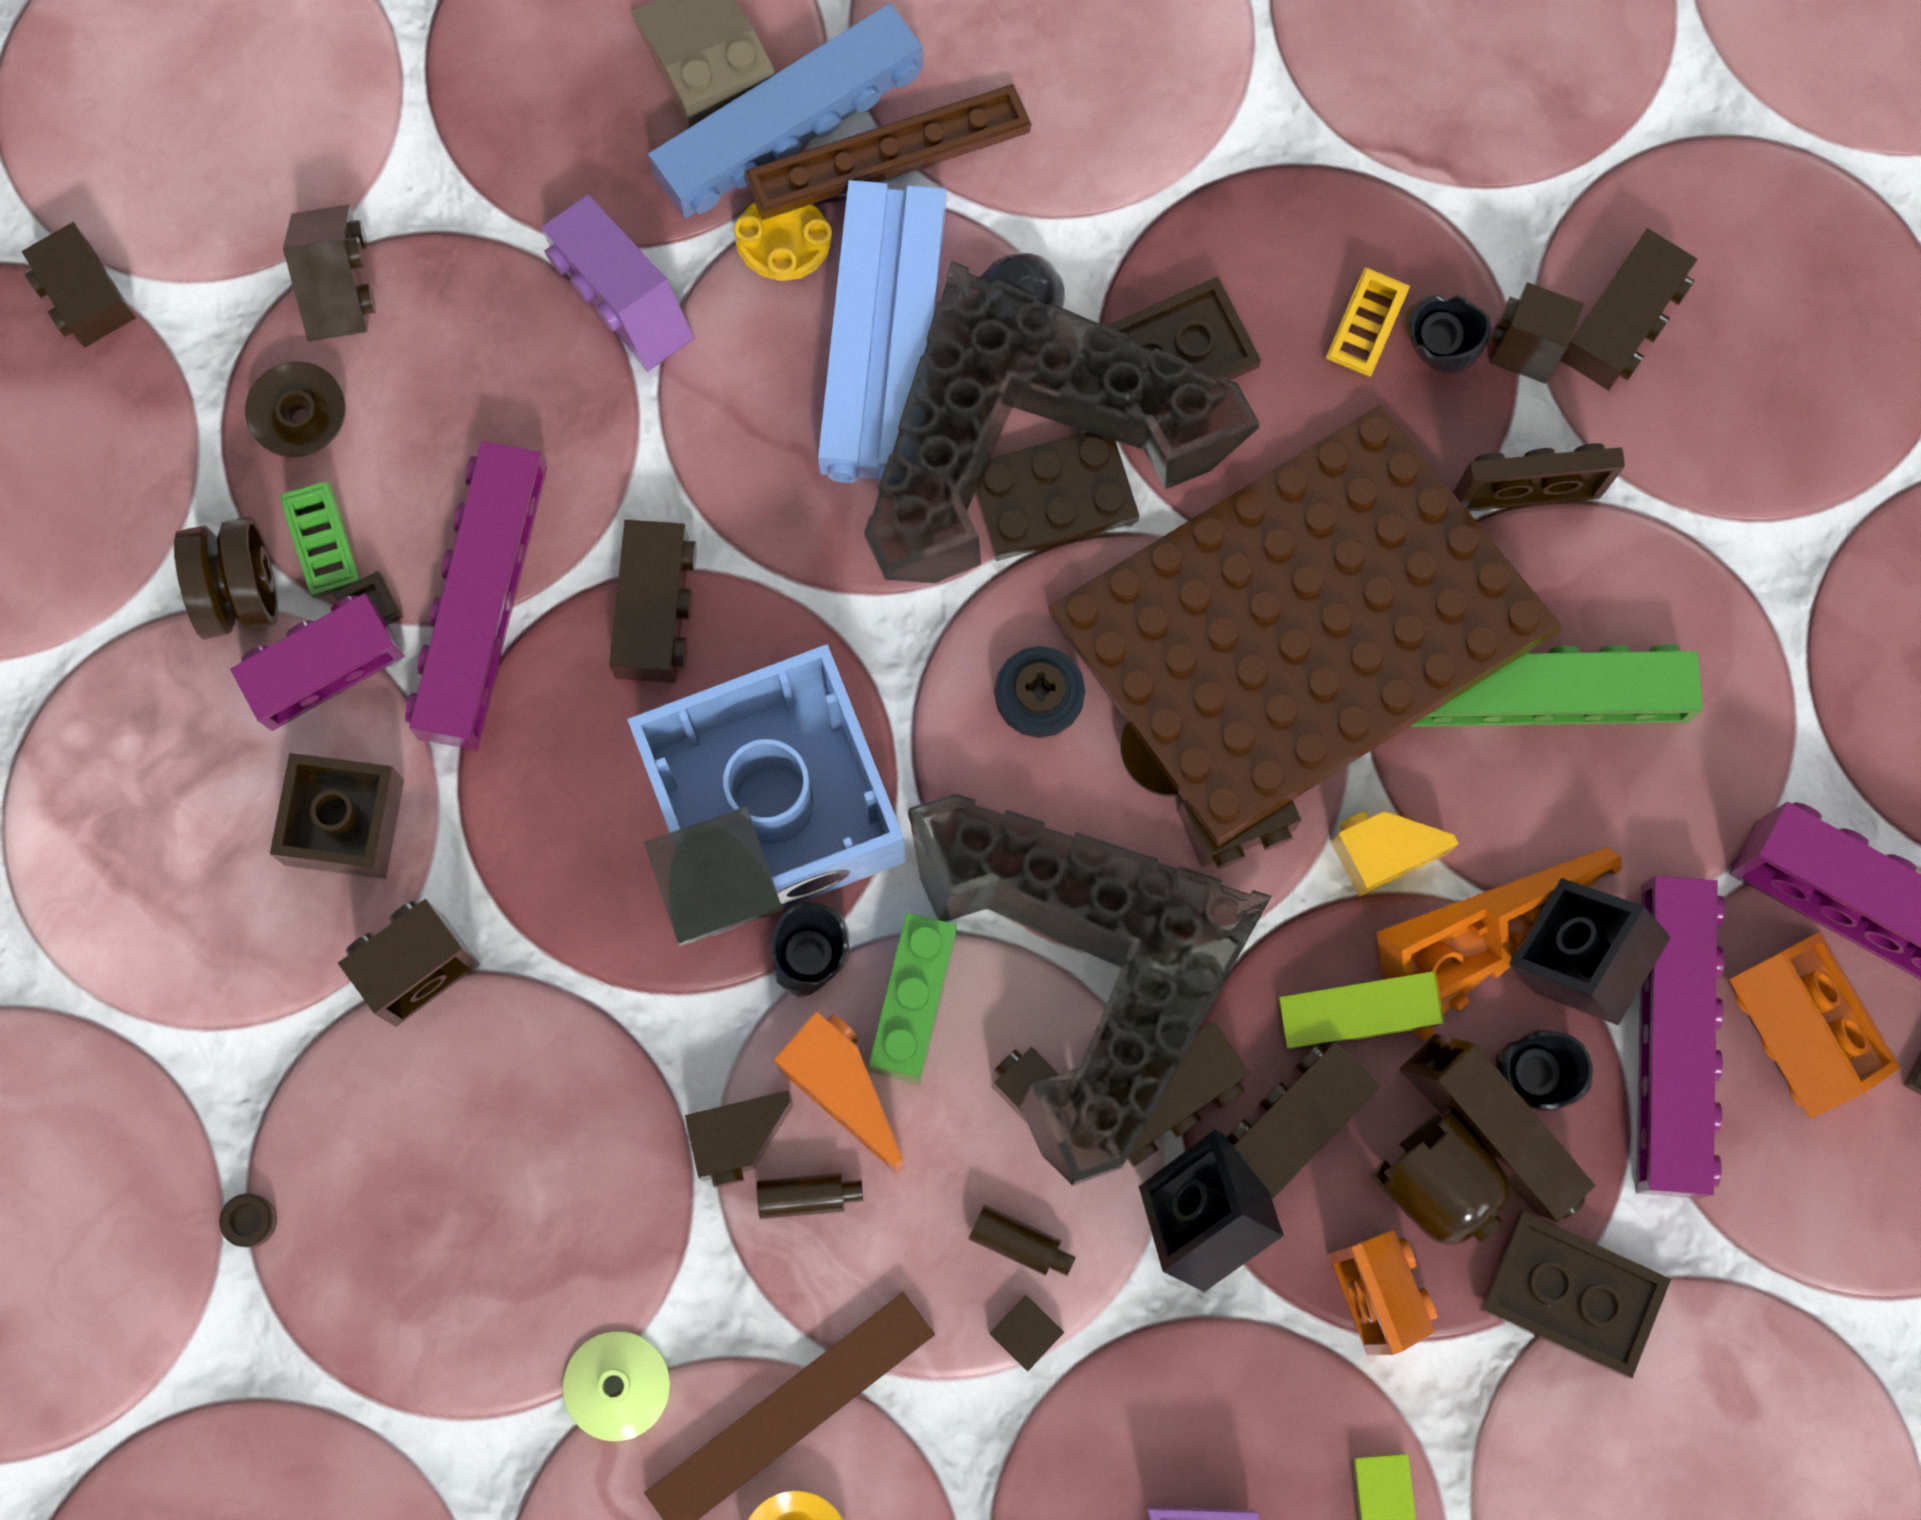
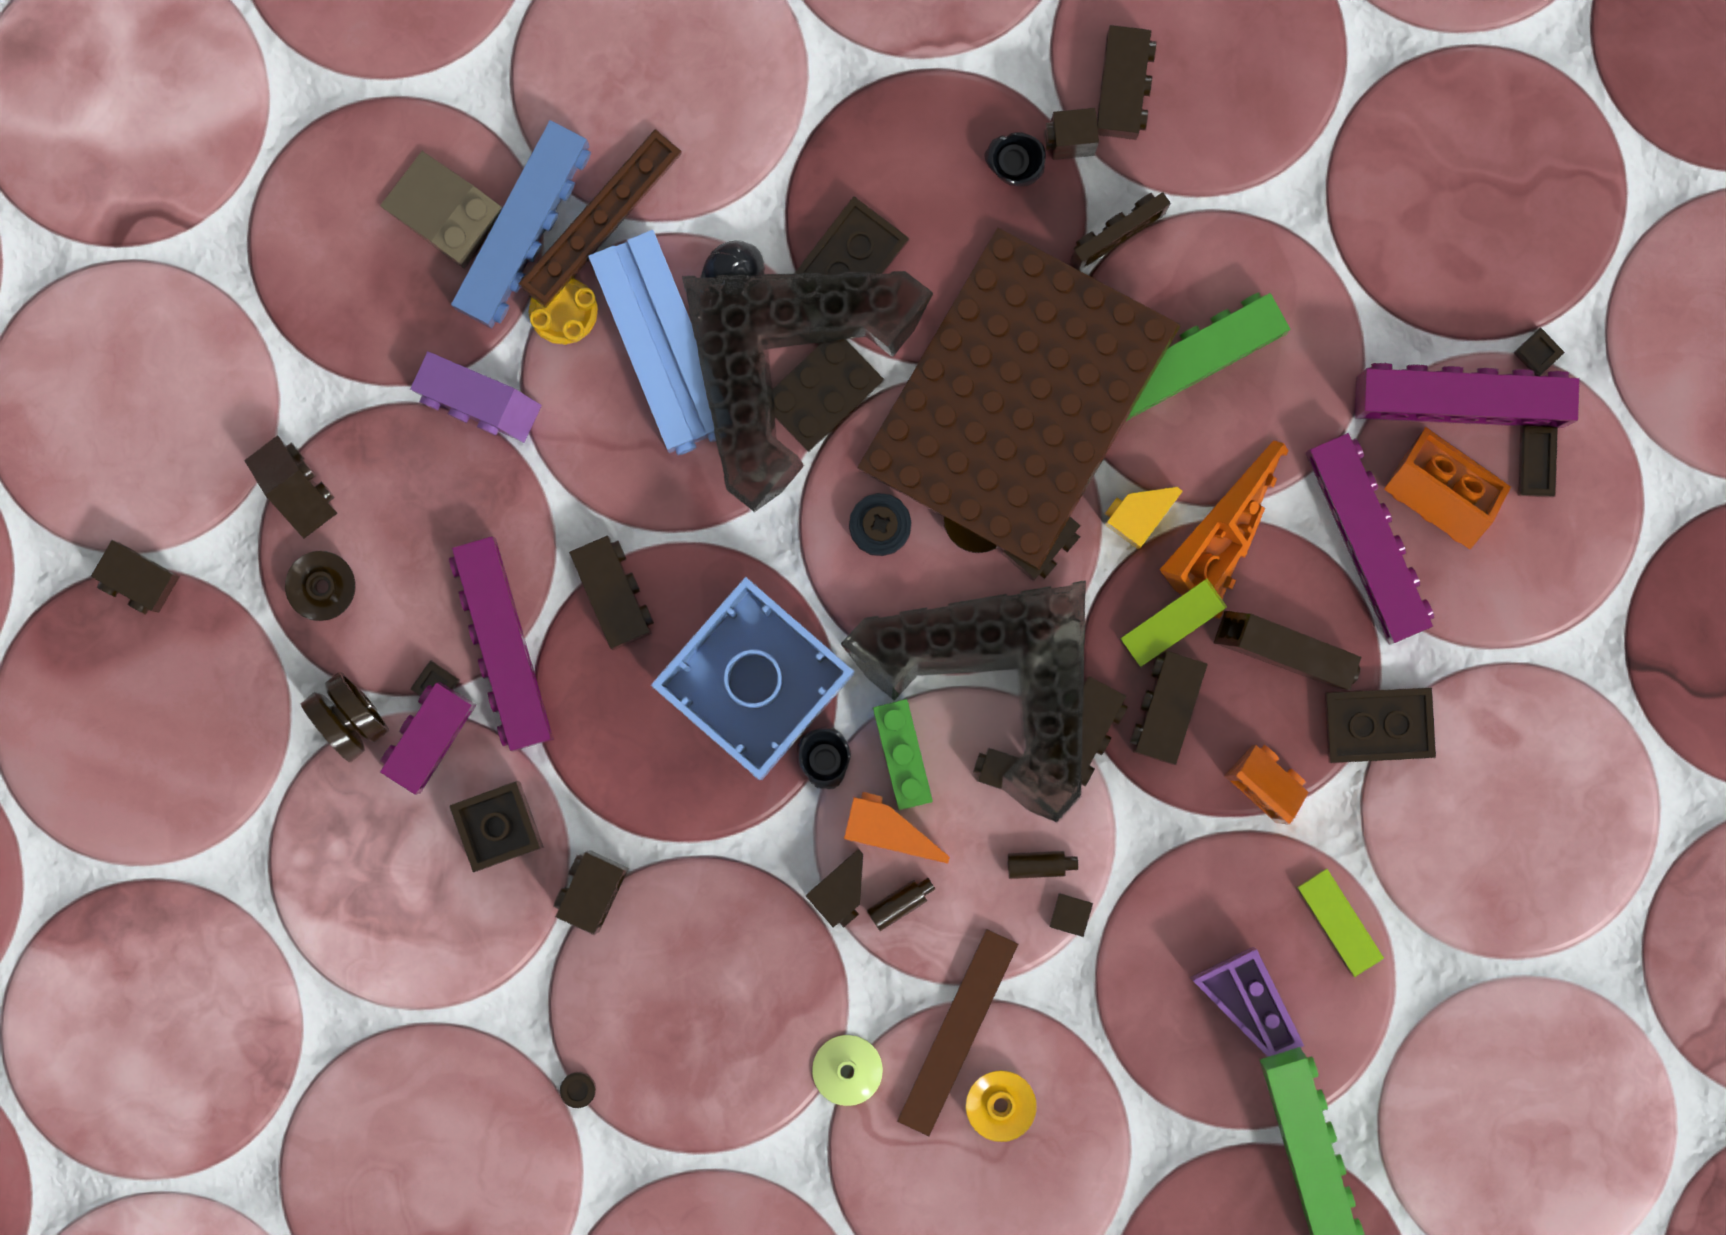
camera: 25 degrees left, 10 degrees up
(307, 500) = (361, 638): bright green slope -> none
(713, 876) = (754, 753): clear smoke tile -> none
(1208, 1213) = (1142, 791): black slope -> none
(1384, 287) = (962, 145): yellow slope -> none
(1446, 1181) = (1272, 699): dark brown cylinder -> none
(1547, 1069) = (1299, 602): black hair -> none
(1590, 950) = (1292, 517): black brick -> none

